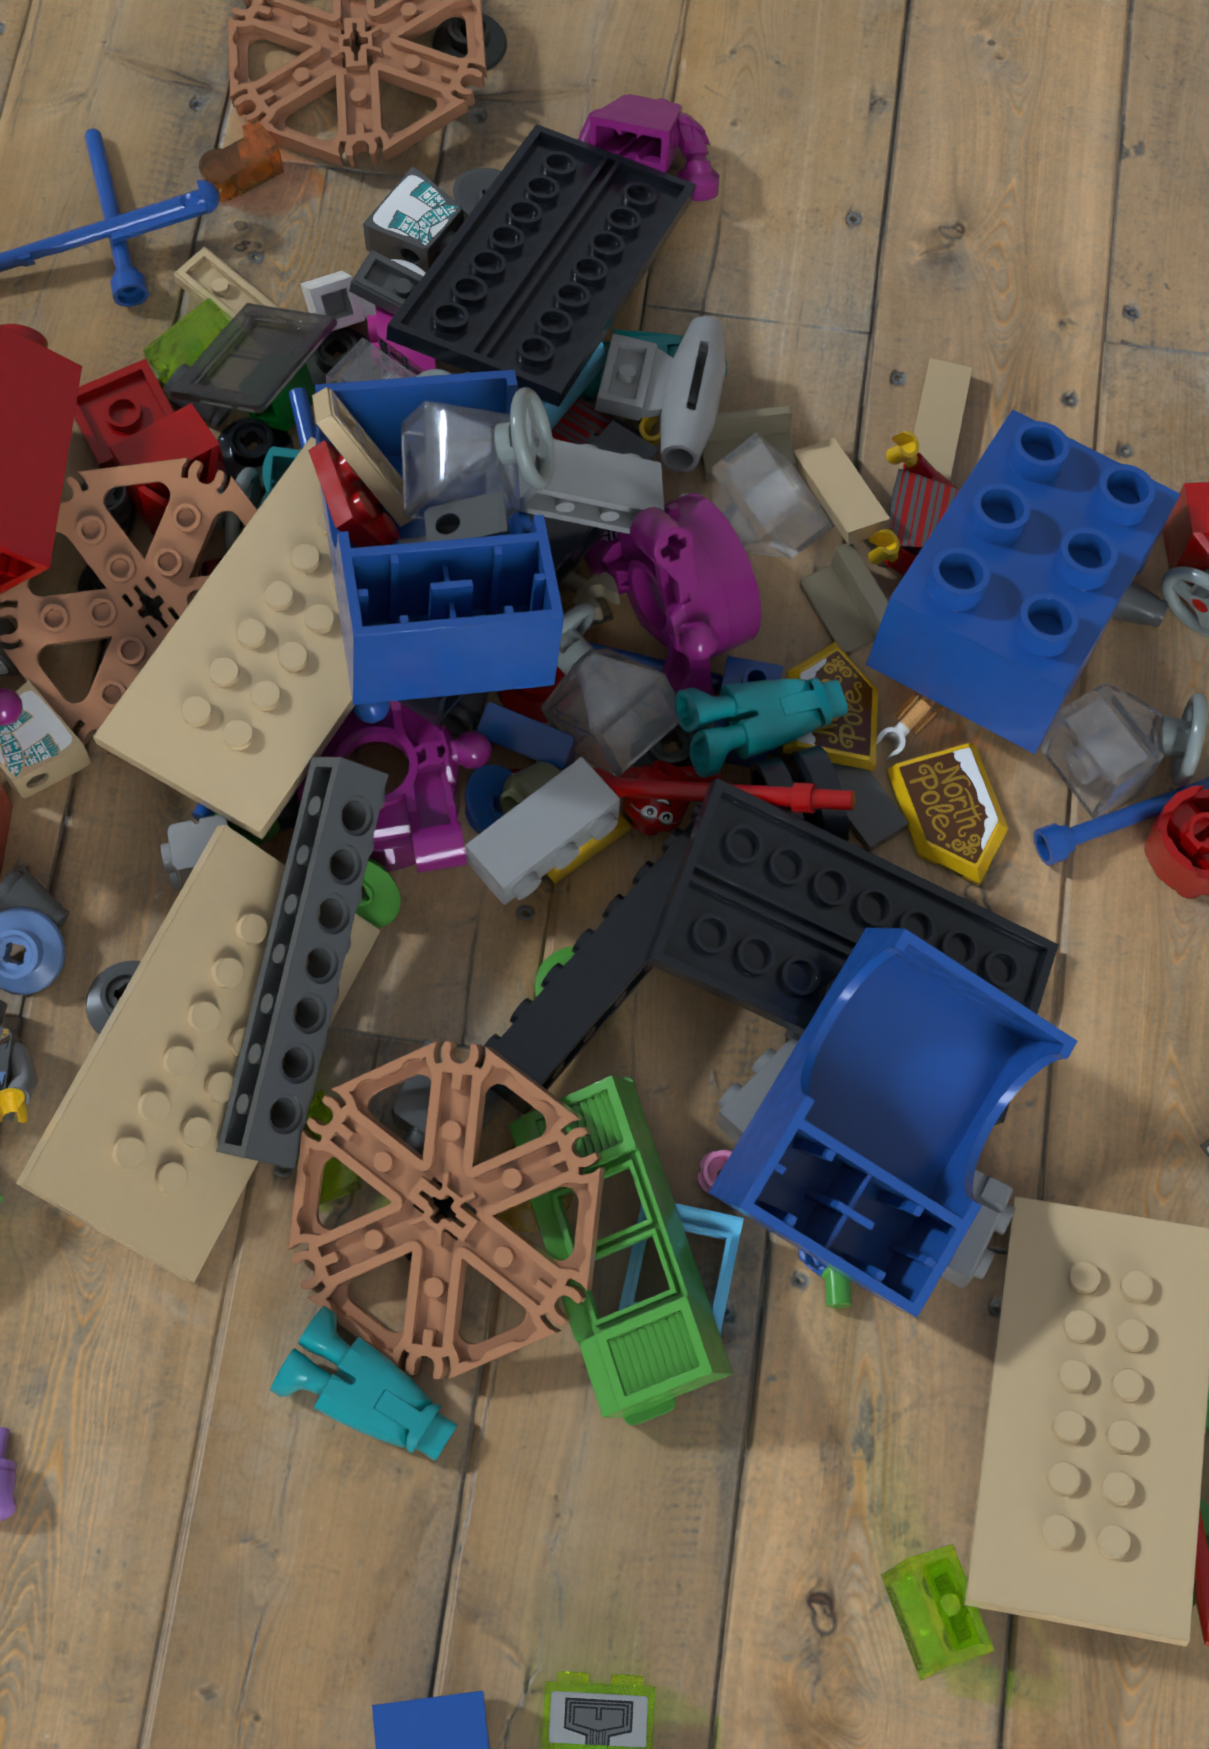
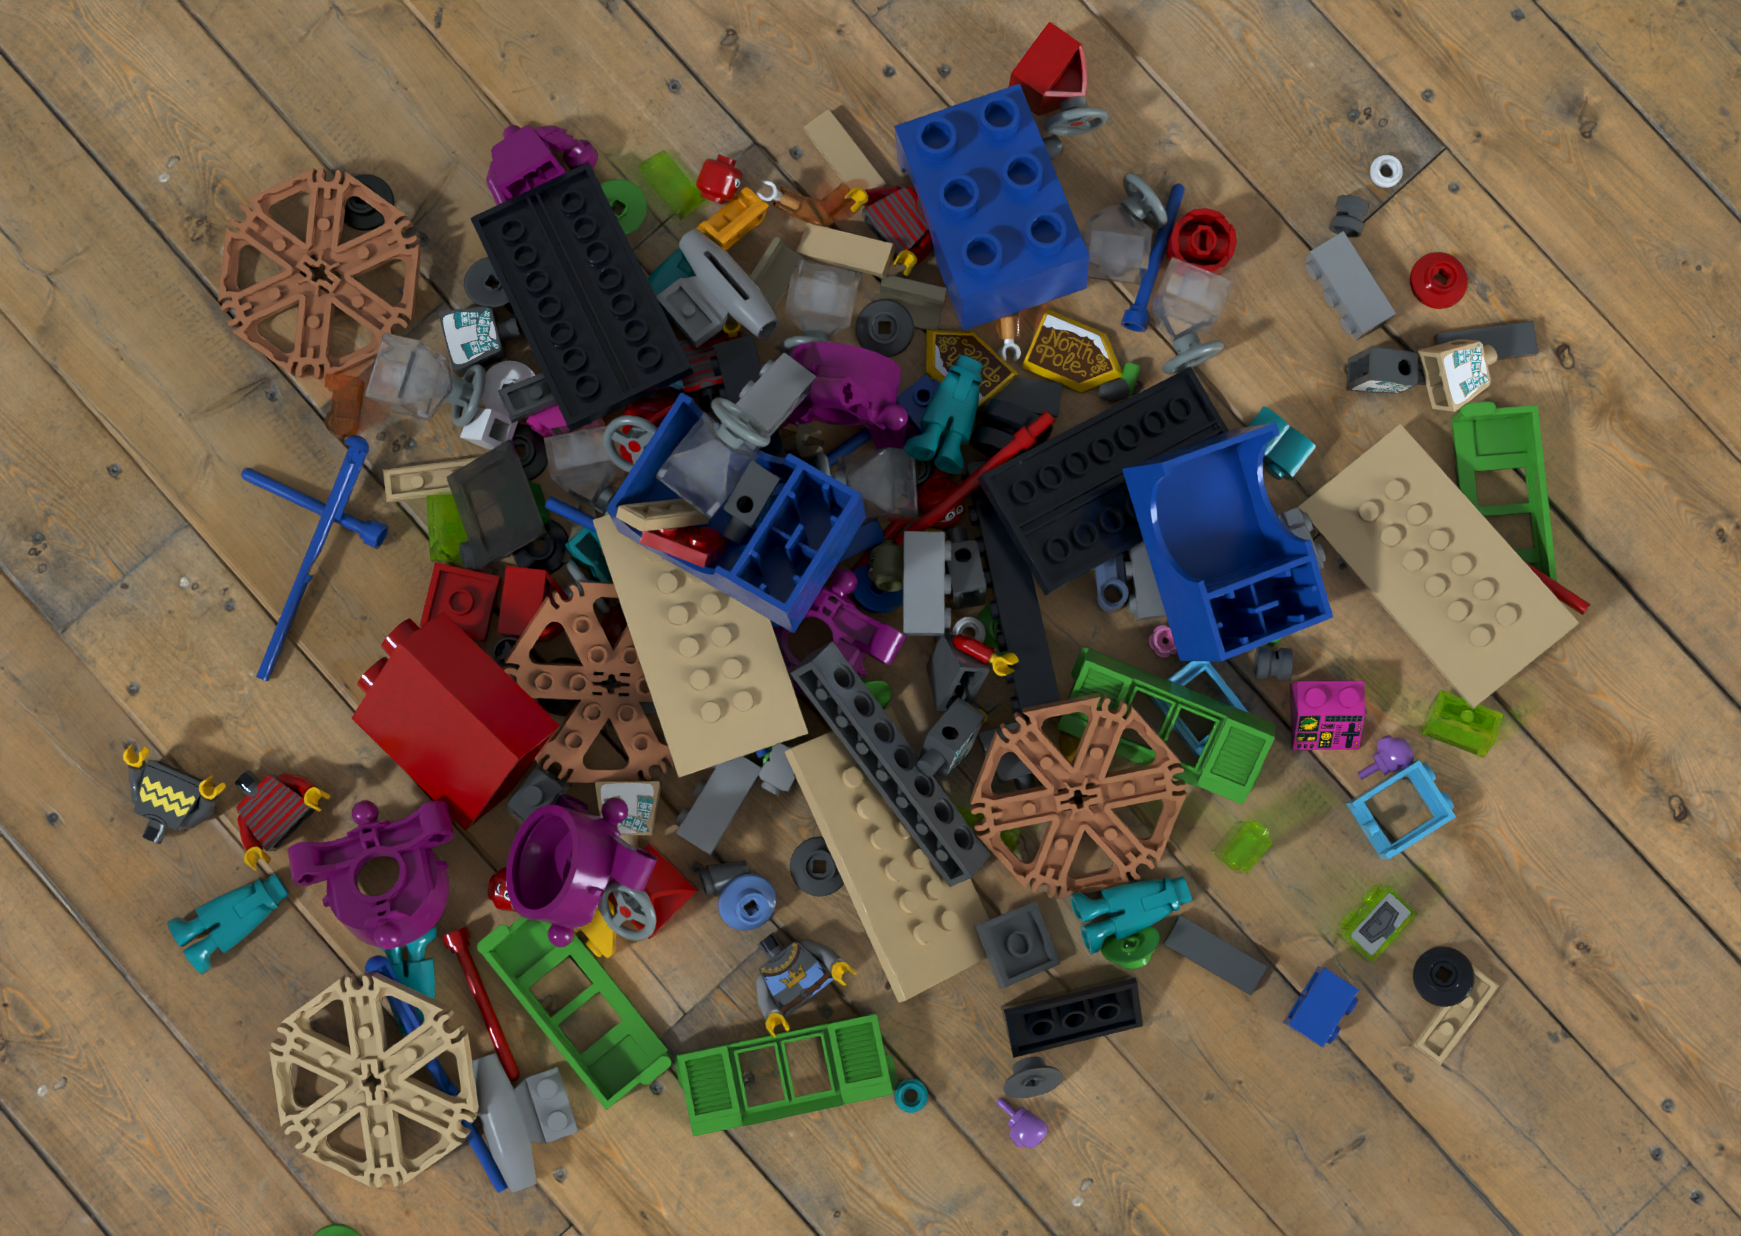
camera: 50 degrees left, 15 degrees up
(56, 1442) = (1032, 1078): none -> dark grey piece
(108, 829) = (717, 803): none -> light grey brick
(175, 1431) = (1073, 1015): none -> black slope
(210, 1290) = (1017, 944): none -> dark grey plate
(312, 1434) = (1133, 950): none -> bright green piece
(322, 195) = (419, 380): none -> clear piece
(389, 1009) = (940, 750): none -> dark grey torso
(392, 1549) = (1215, 955): none -> dark grey tile
(475, 961) = (961, 667): none -> dark grey torso
(538, 935) = (970, 622): none -> white plate
(552, 1458) = (1243, 846): none -> clear neon green brick
(597, 877) = (967, 578): none -> dark grey torso
(691, 242) = (631, 198): none -> bright green piece
(740, 1048) = (1111, 576): none -> sand blue piece
(750, 285) = (671, 184): none -> clear neon green slope
(767, 368) = (735, 219): none -> light orange hinge
(797, 320) = (719, 179): none -> red head
(799, 618) = (884, 311): none -> dark grey piece
(801, 1436) = (1327, 715): none -> dark pink slope
(805, 1319) = (1273, 663): none -> dark grey wheel
(819, 1562) = (1391, 756): none -> medium lavender piece
(828, 1624) = (1436, 801): none -> medium azure window
(845, 419) = (808, 209): none -> clear orange arm
(974, 891) = (1122, 387): none -> dark grey arm
(1062, 1112) = (1285, 452): none -> teal brick
(1116, 887) = (1187, 307): none -> clear piece

